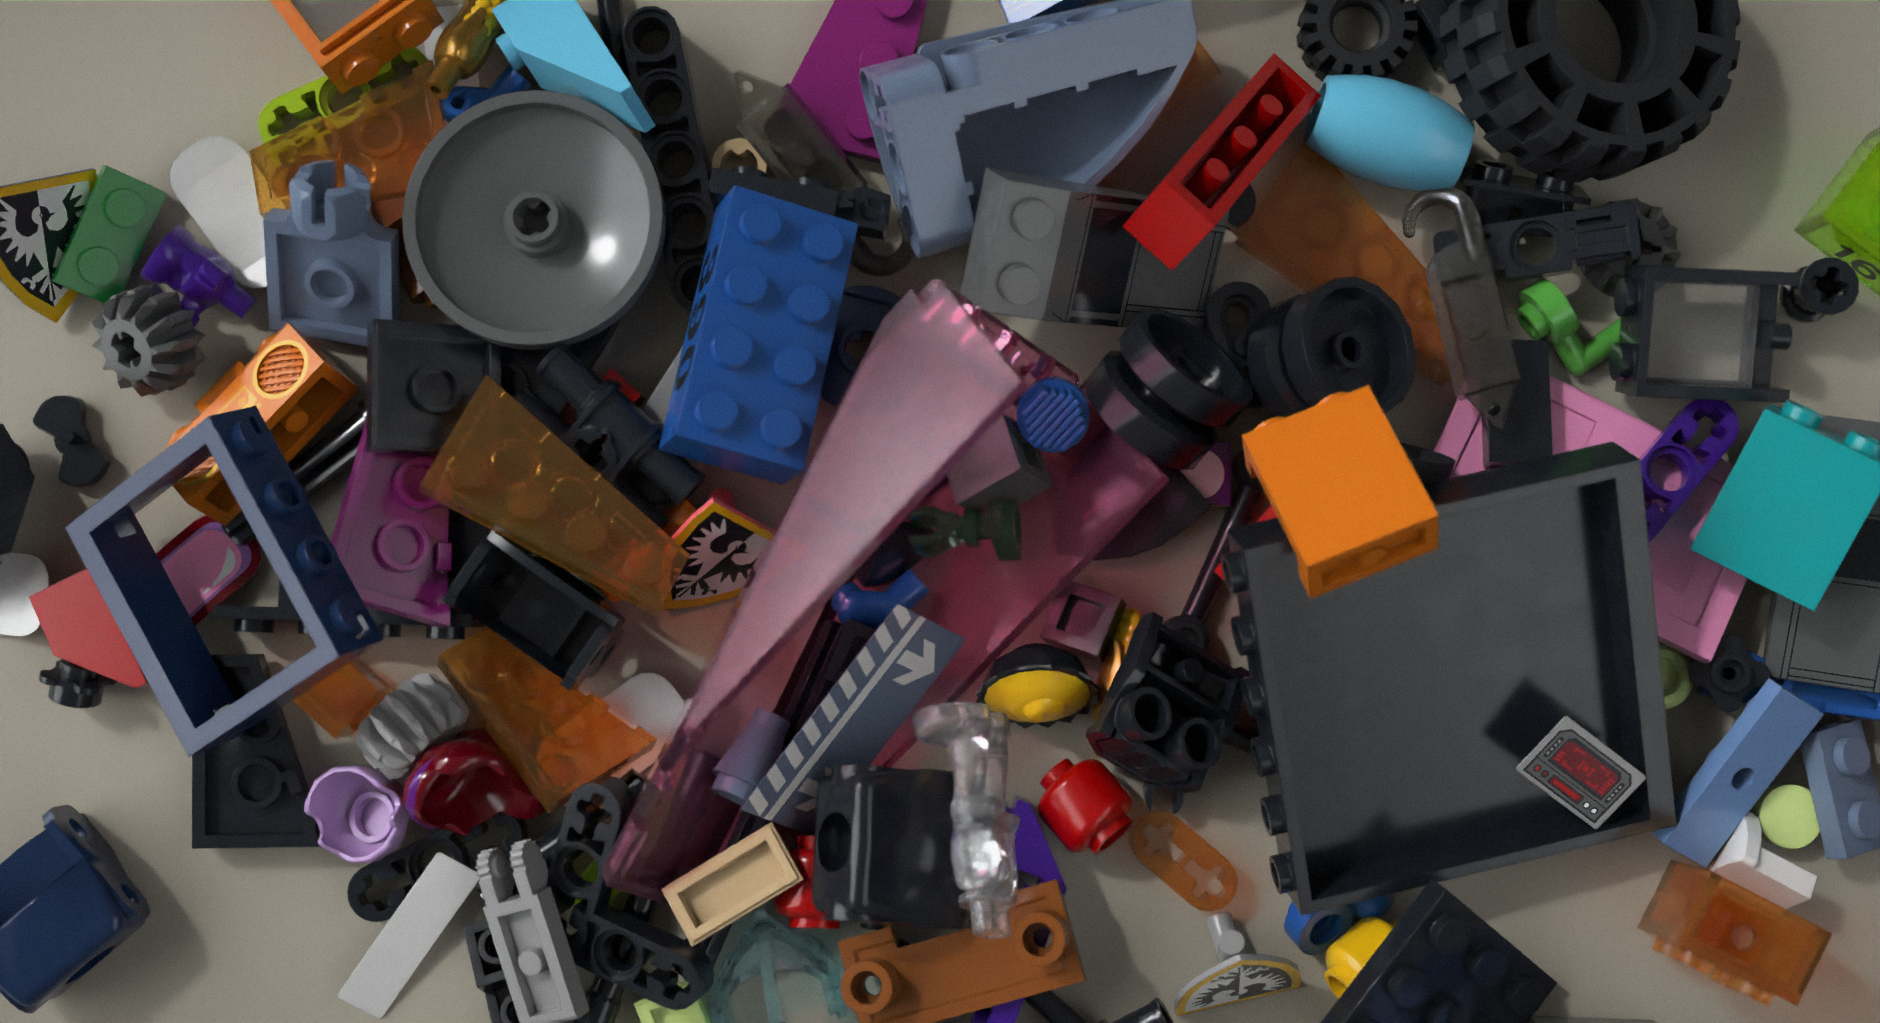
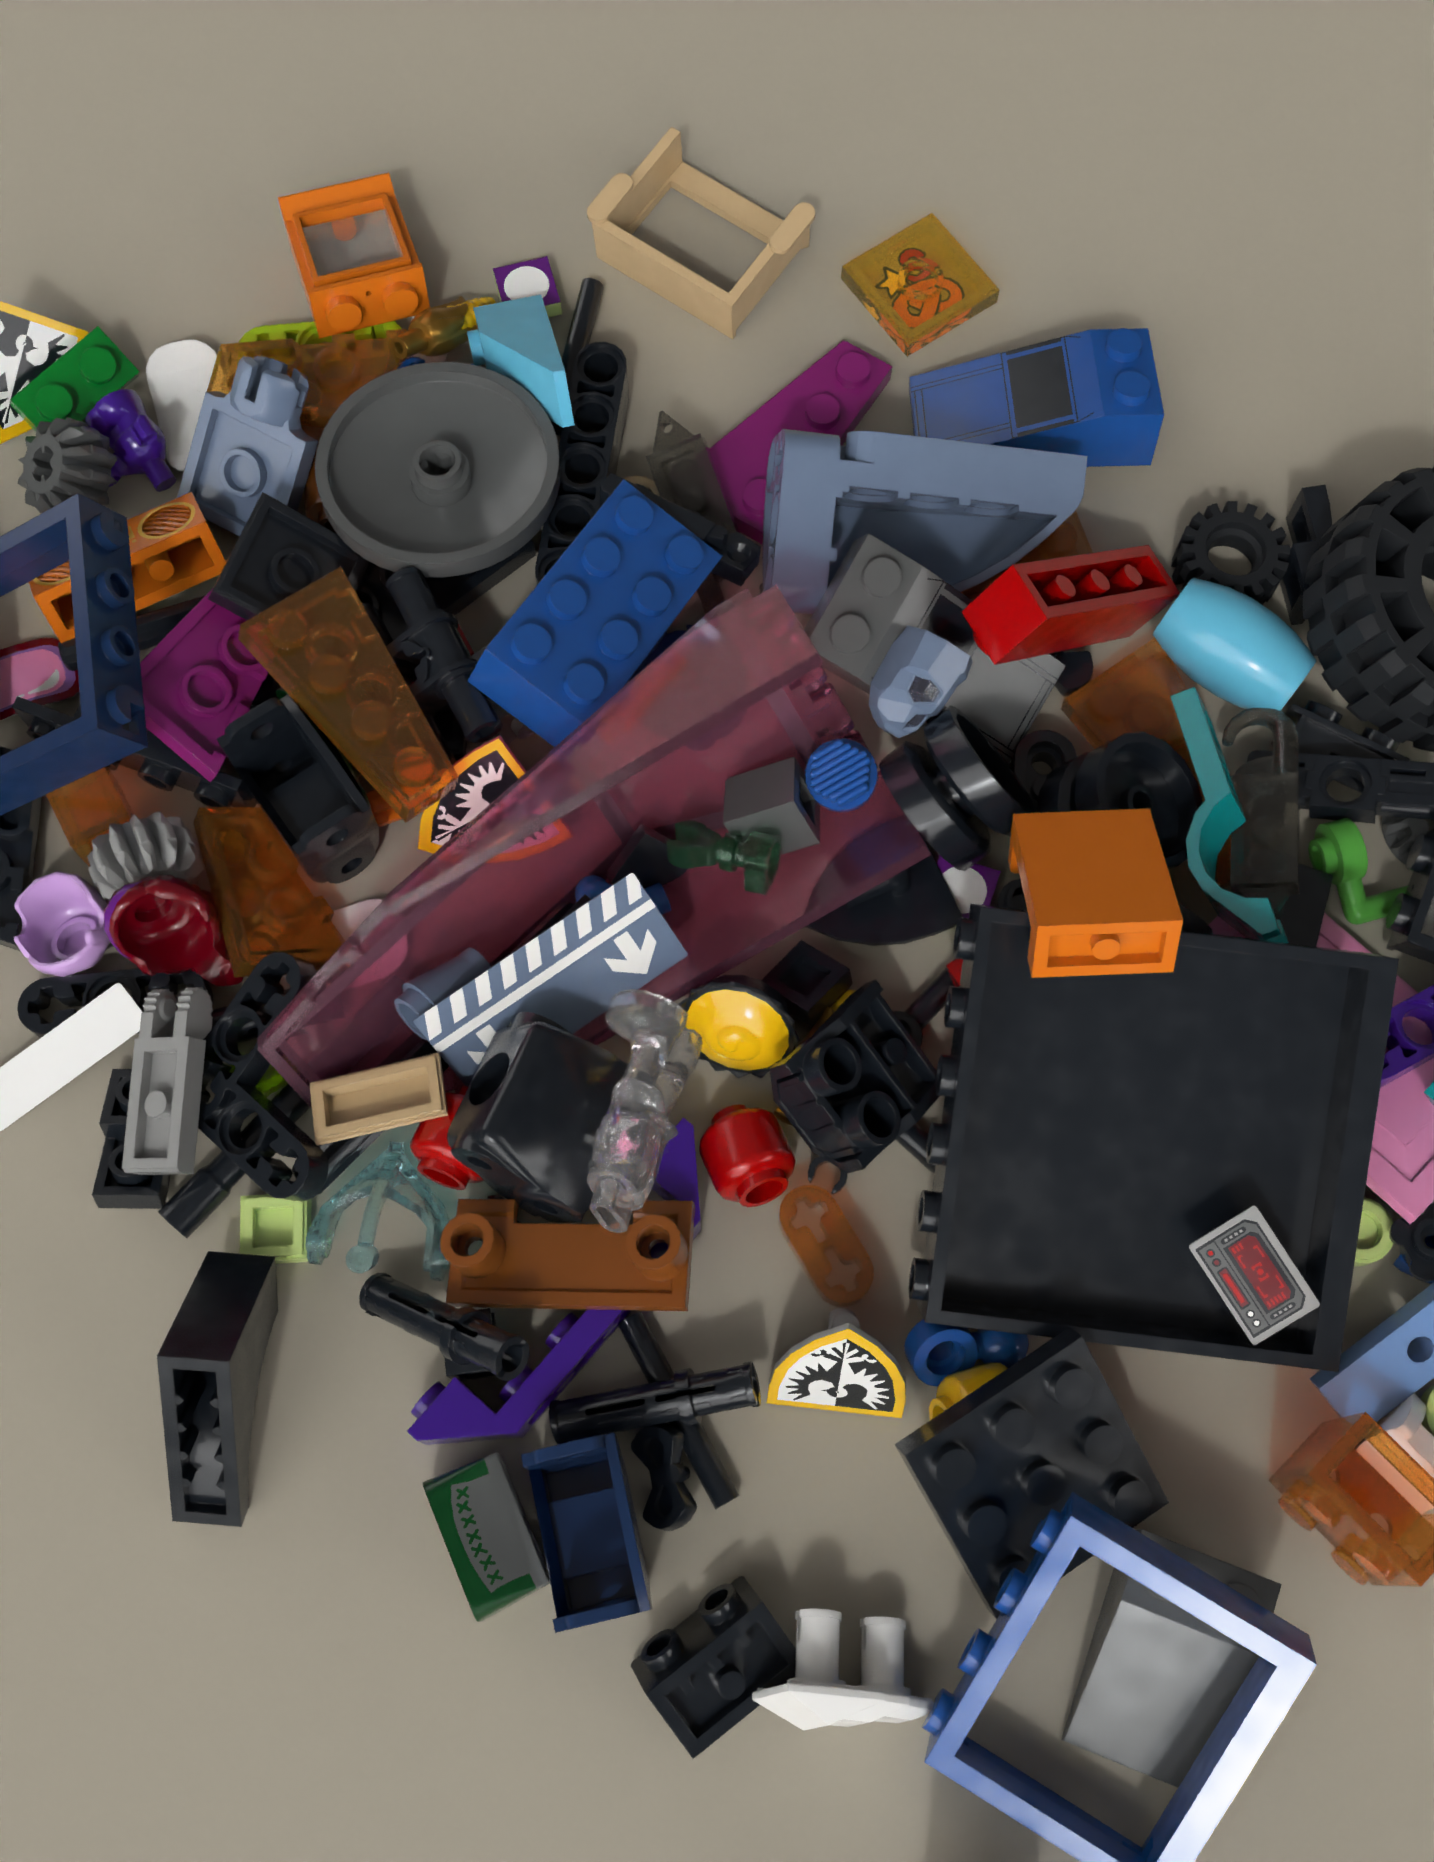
camera: 20 degrees right, 15 degrees down
(1097, 304) = (915, 680): none -> sand blue rock
(1428, 327) = (1215, 821): none -> teal piece

